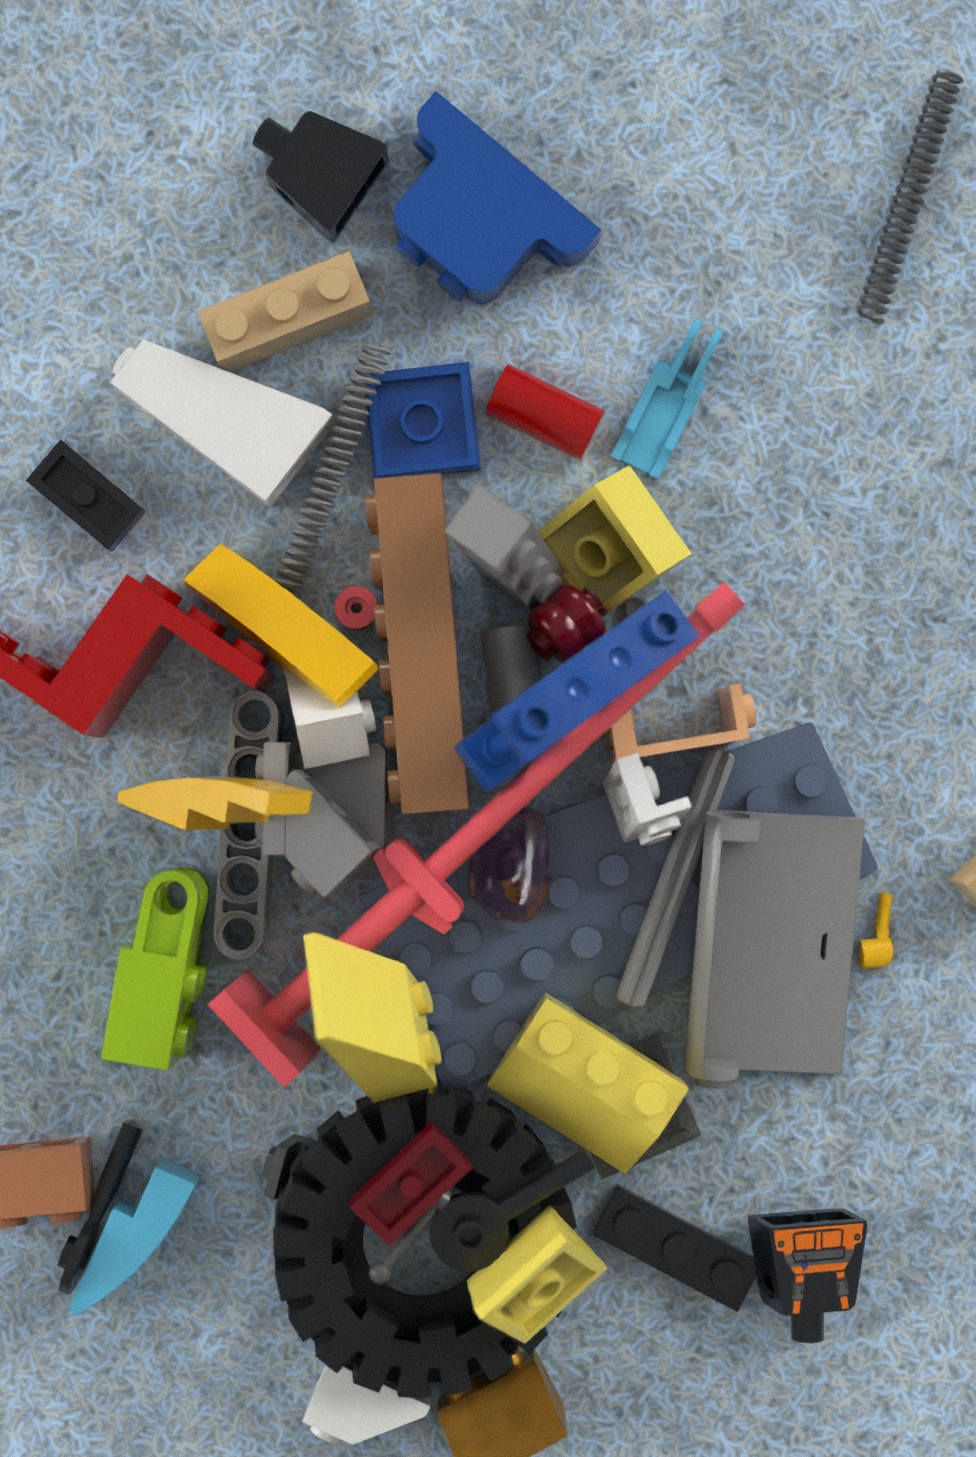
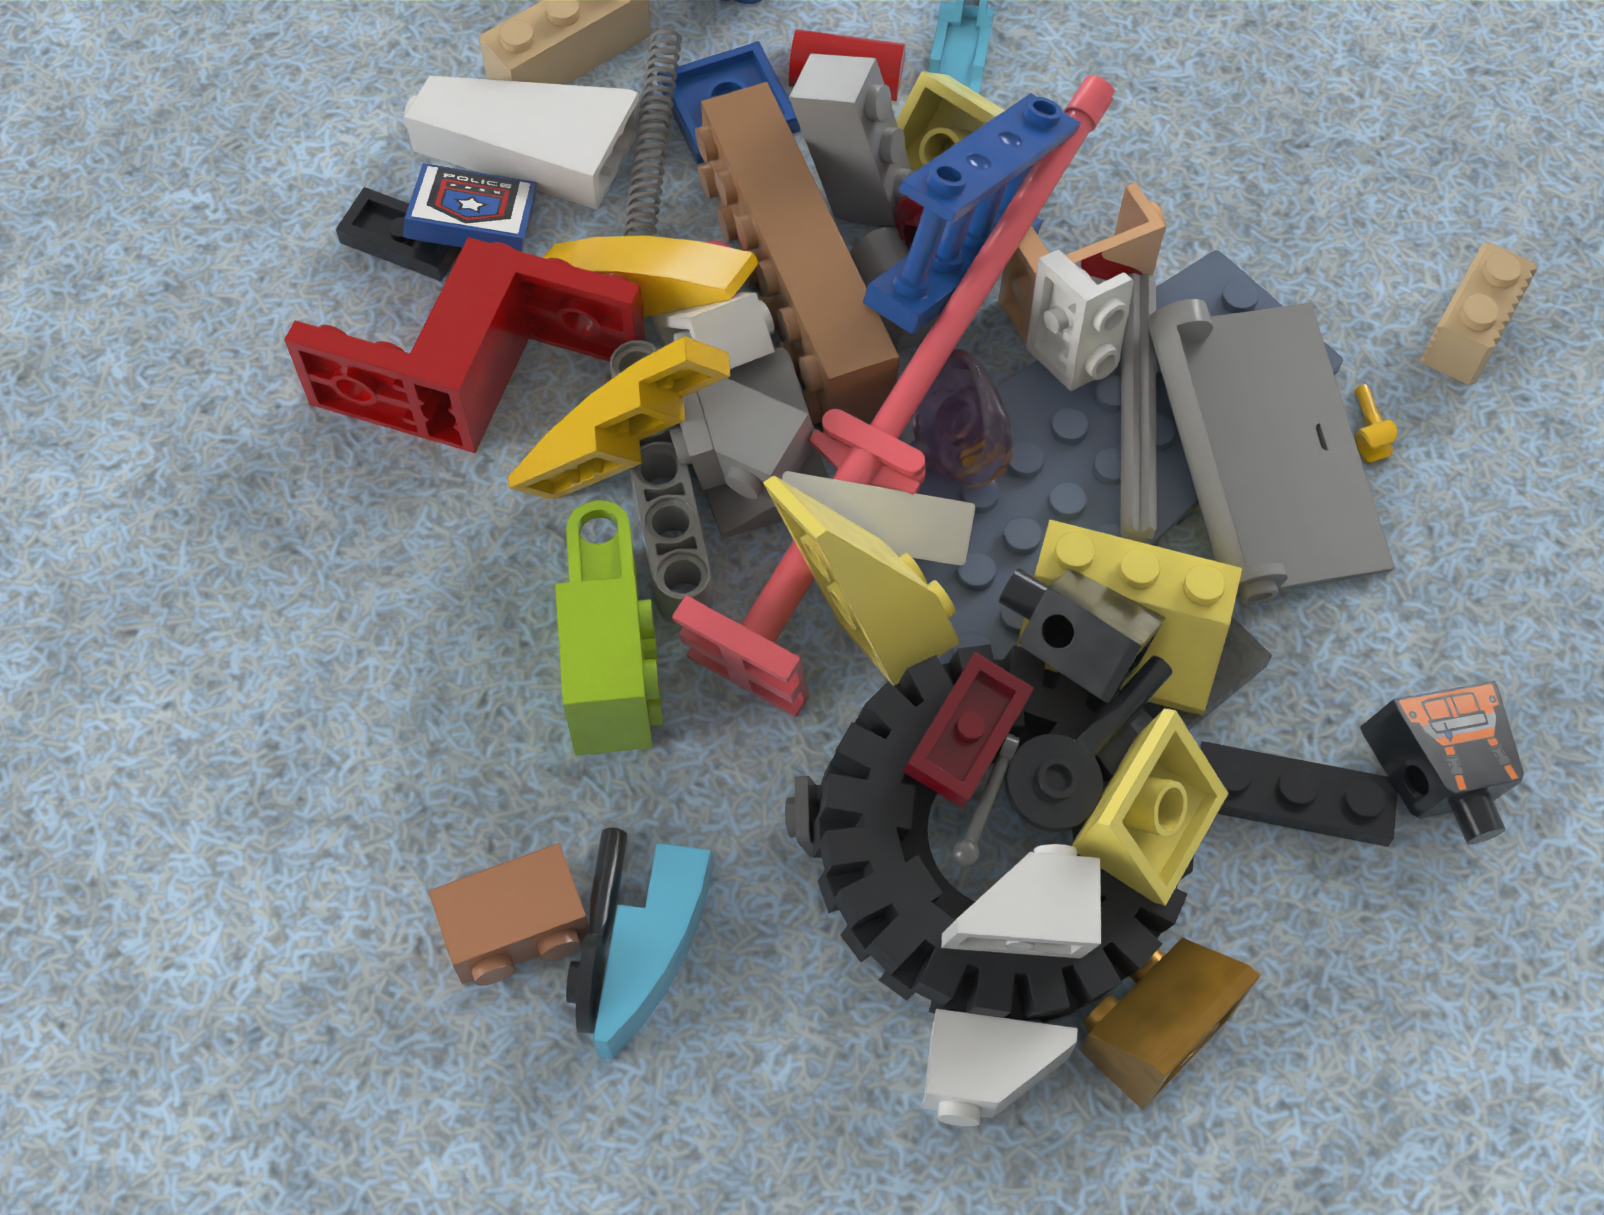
camera: 15 degrees left, 25 degrees down
(149, 497) = (463, 204): none -> tile
(412, 1335) = (1037, 908): none -> white slope
(416, 946) = (905, 522): none -> white sticker
(536, 1119) = (1100, 641): none -> black torso

